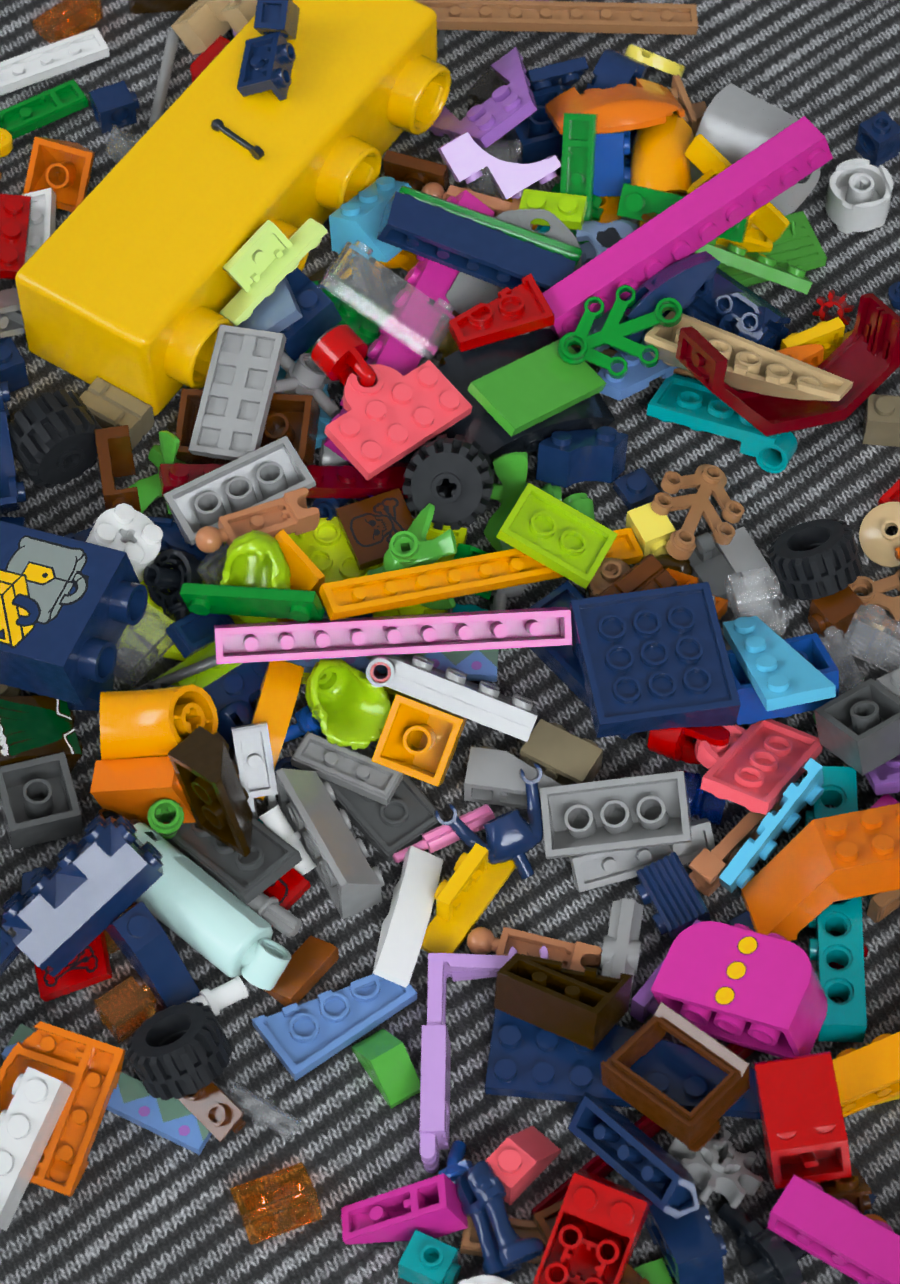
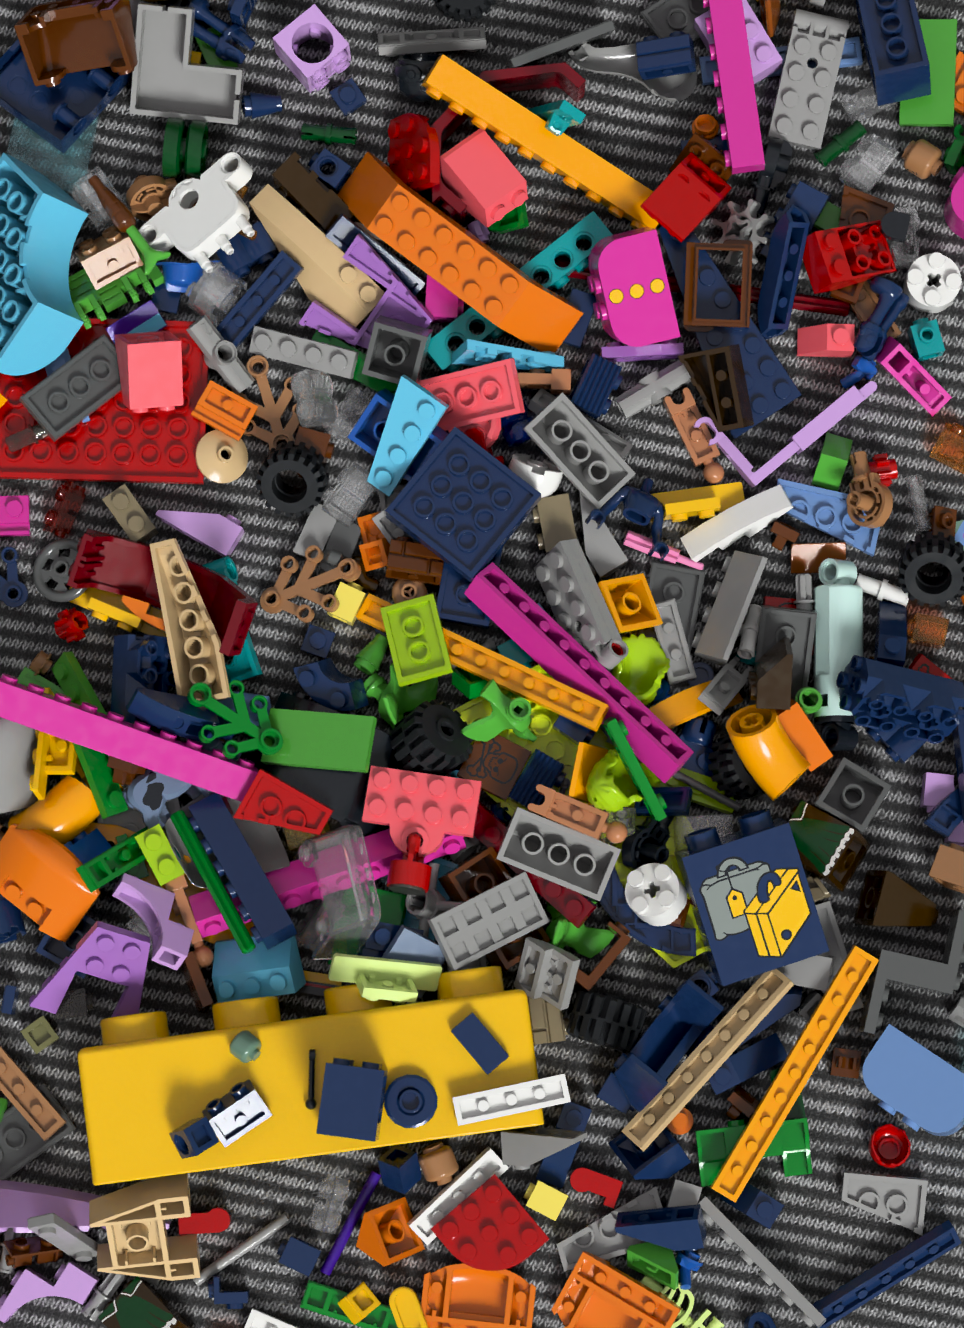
camera: 130 degrees left, 25 degrees up
(29, 113) = (359, 1303): none -> yellow slope
(59, 258) = (511, 1099): none -> white plate
(93, 145) = (350, 1223): none -> dark purple bar
(133, 273) = (480, 1043): none -> dark blue tile
(137, 40) = (232, 1299): none -> dark blue bracket
(140, 191) = (410, 1101): none -> dark blue wheel
(146, 413) = (547, 972): none -> light grey slope
(180, 113) = (352, 1100): none -> dark blue brick
(310, 1046) = (867, 495): none -> medium nougat pin
(314, 110) = (245, 1046): none -> sand green piece
(330, 547) = (539, 770): none -> dark blue brick
(330, 1099) = (884, 467): none -> red gear
(356, 954) = (784, 533): none -> reddish brown tile
(482, 59) = (40, 1034): none -> olive plate
(535, 56) = (10, 999): none -> dark blue tile
(562, 74) = (26, 965): dark blue plate -> none
(629, 758) = (540, 475): none -> white cylinder
(818, 271) = (41, 663): none -> medium nougat plate
(827, 472) = (208, 529): none -> lavender slope

